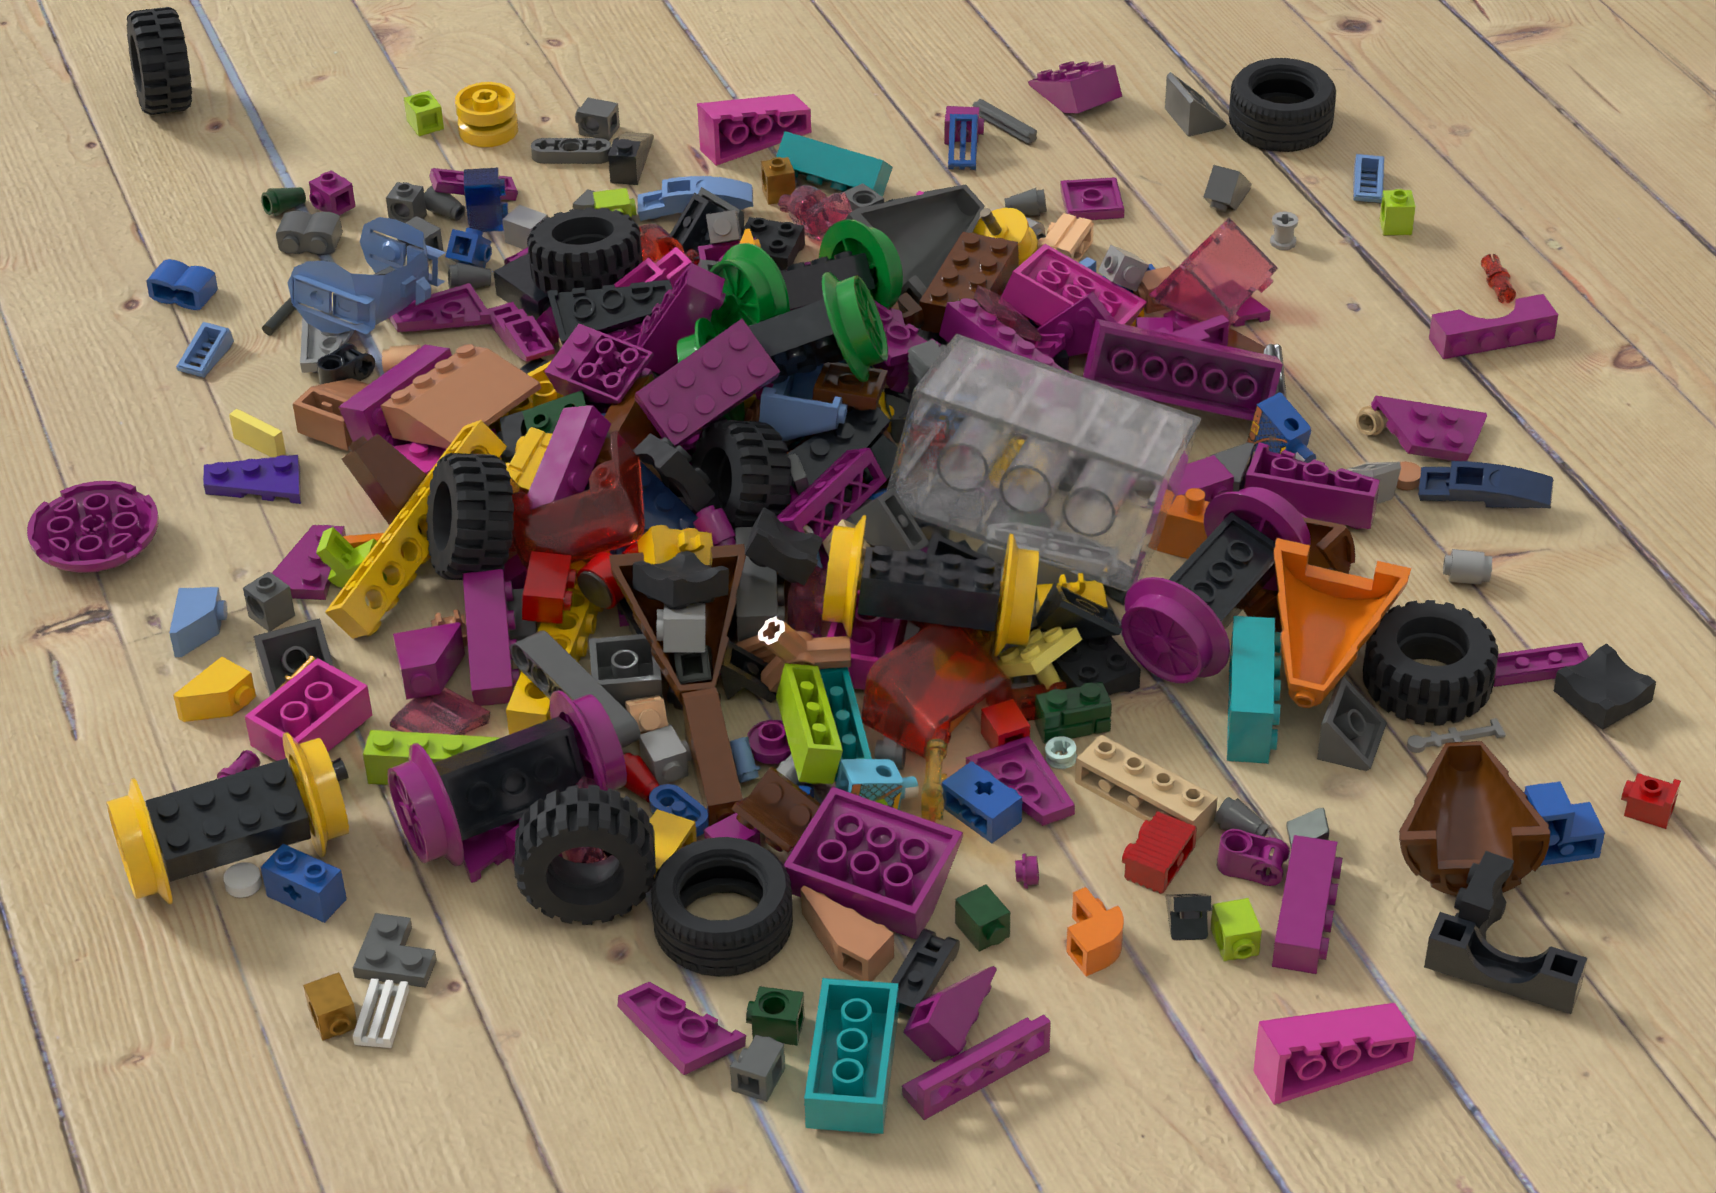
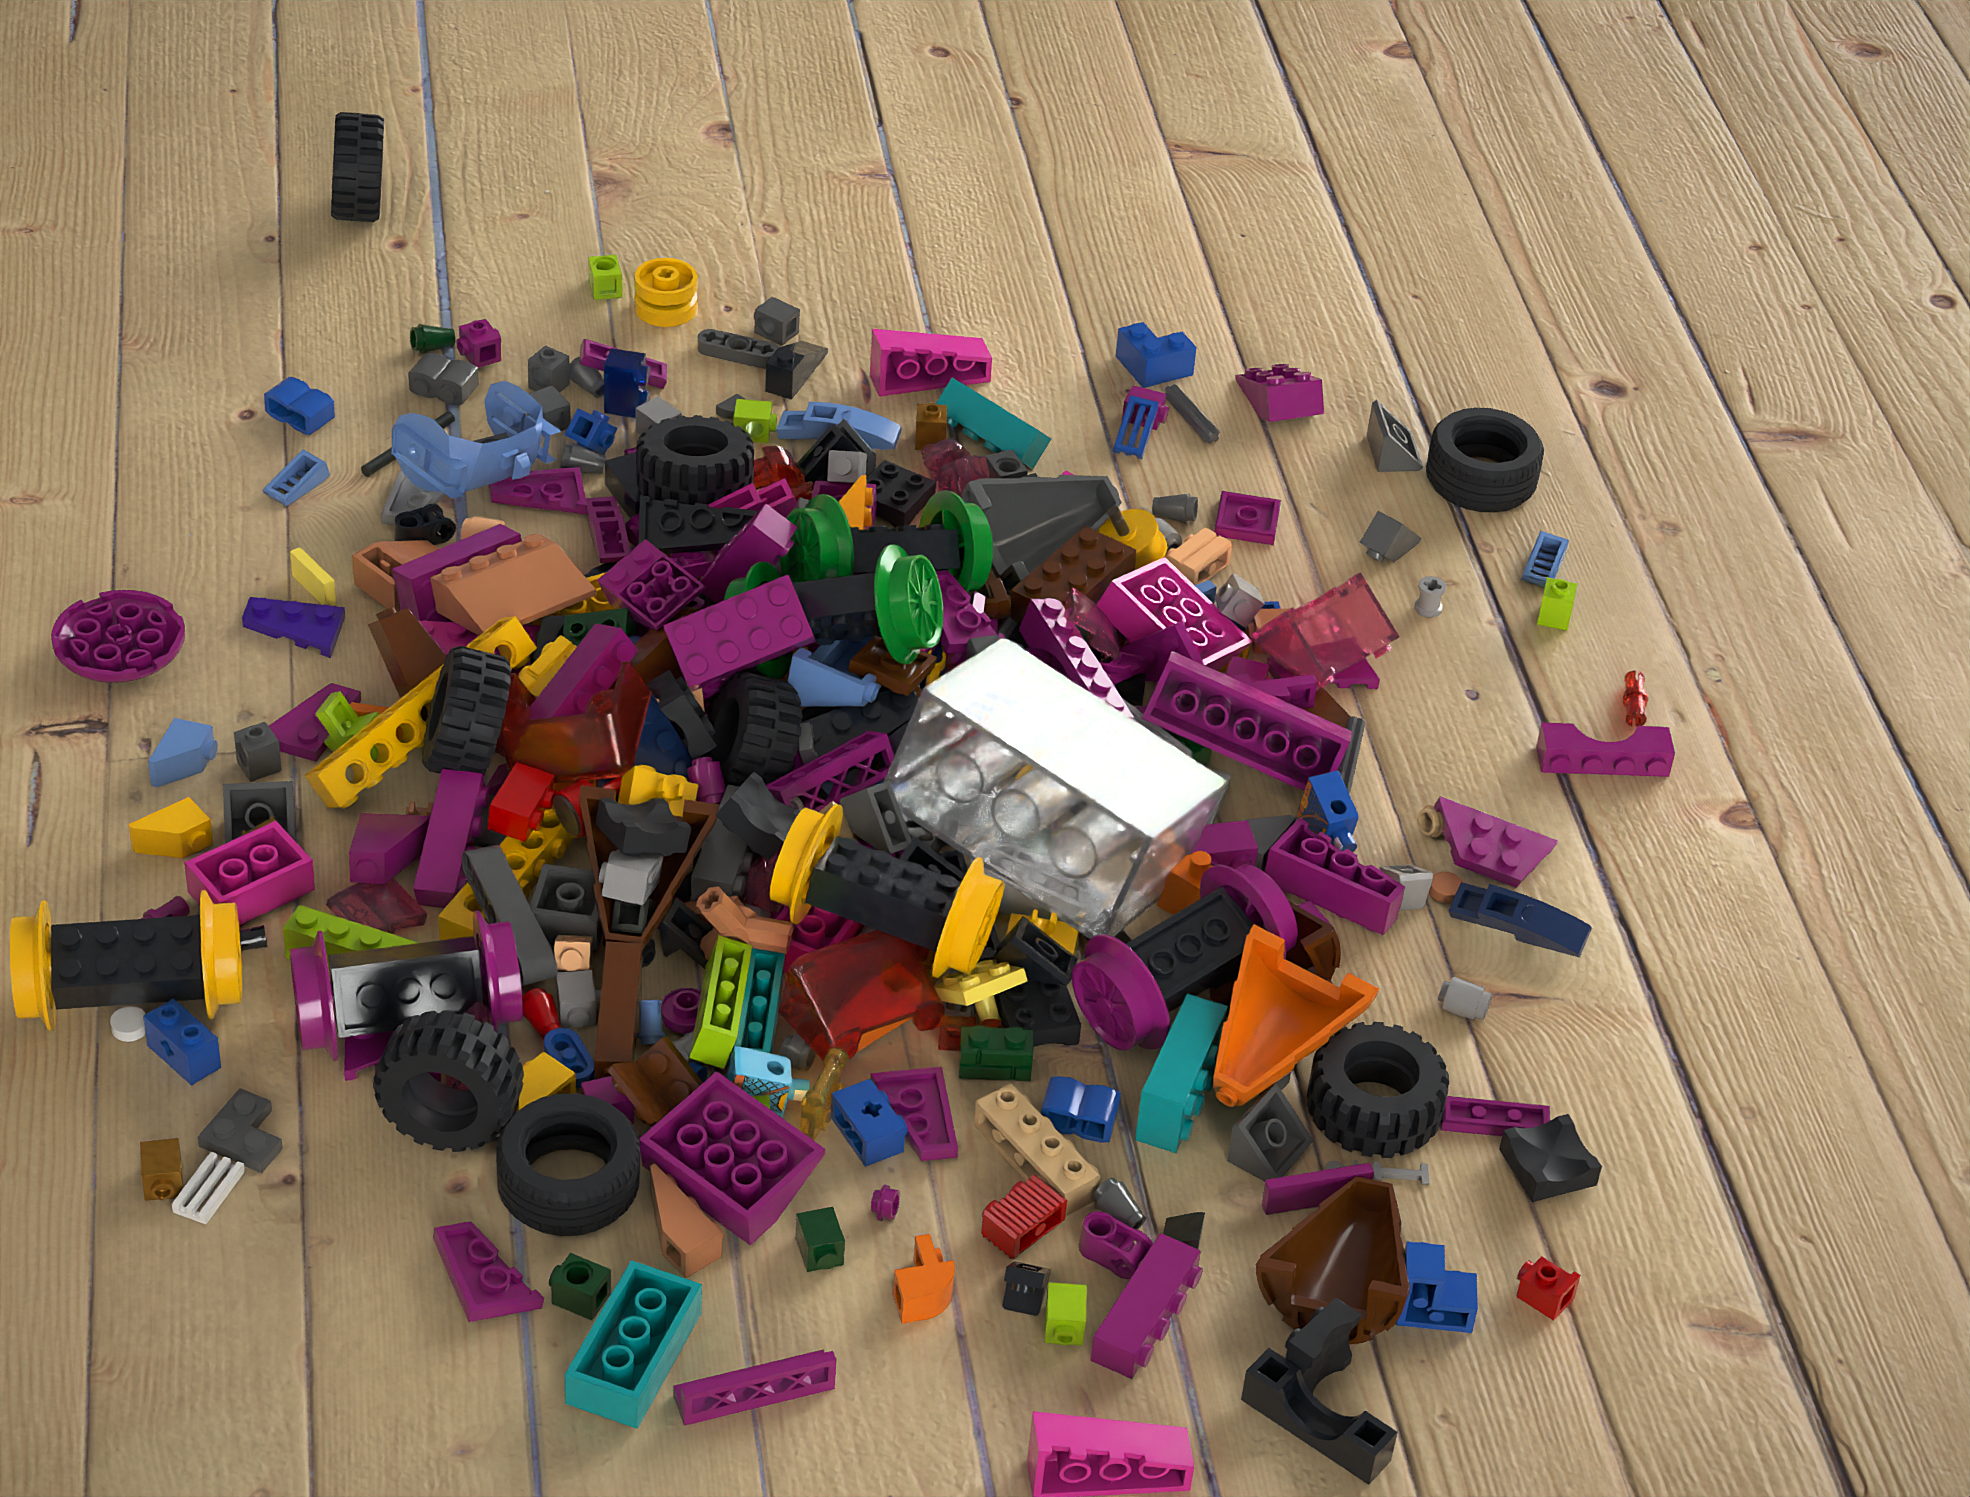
camera: 10 degrees right, 0 degrees up
(758, 1068) = (542, 1333): dark grey brick -> none
(923, 968) = (740, 1277): black plate -> none
(945, 1018) = (739, 1330): magenta slope -> none
(949, 80) = (1153, 358): none -> blue brick
(1003, 723) = (921, 1047): red brick -> none
(1062, 744) = (965, 1082): light aqua bush -> none
(1171, 743) = (1081, 1108): none -> blue brick
(1406, 764) = (1309, 1188): none -> magenta tile

